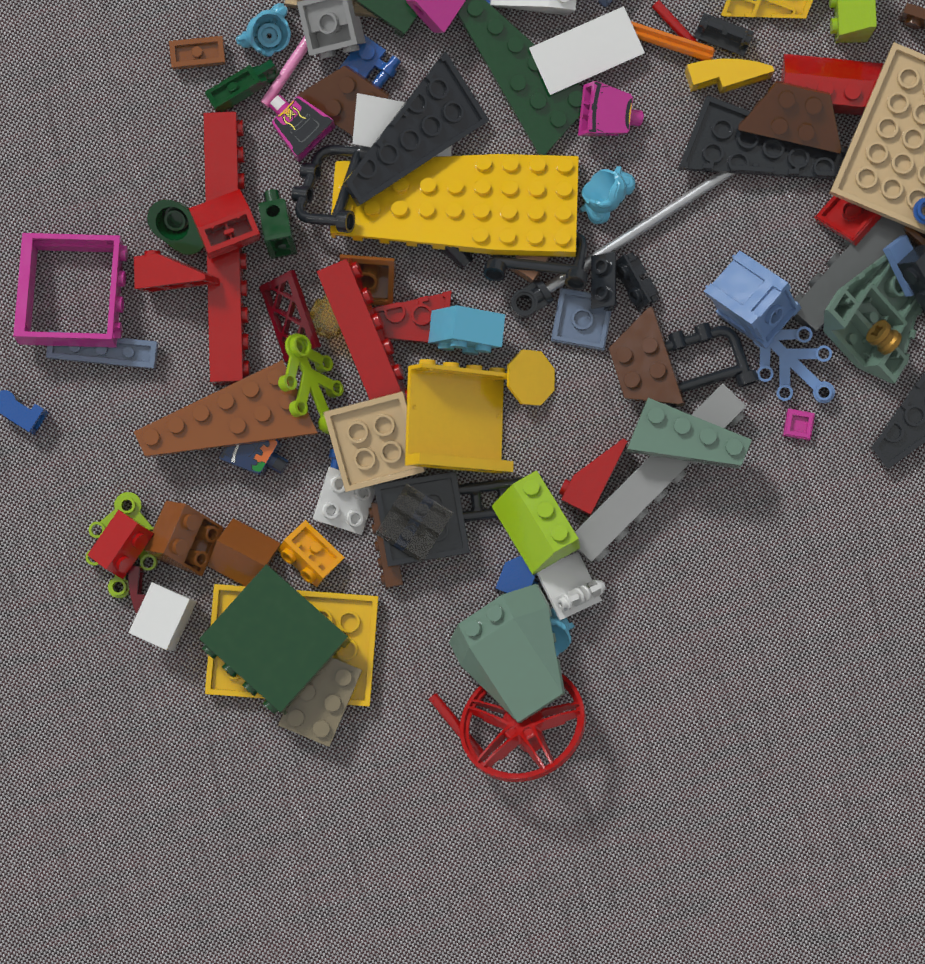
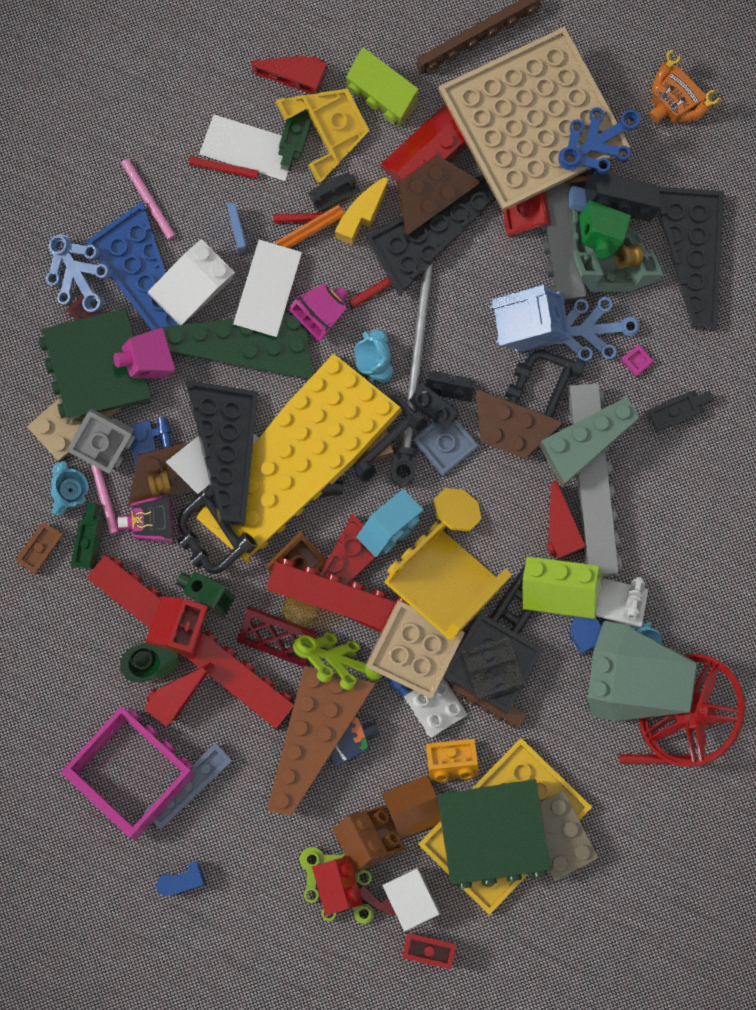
camera: 55 degrees left, 5 degrees down
(131, 667) = (429, 950): none -> red brick
(334, 105) = (159, 484): none -> pearl gold wheel
(660, 142) = (370, 292): none -> red bar
(784, 496) = (678, 409): none -> black hinge
(888, 294) = (603, 228): none -> green torso

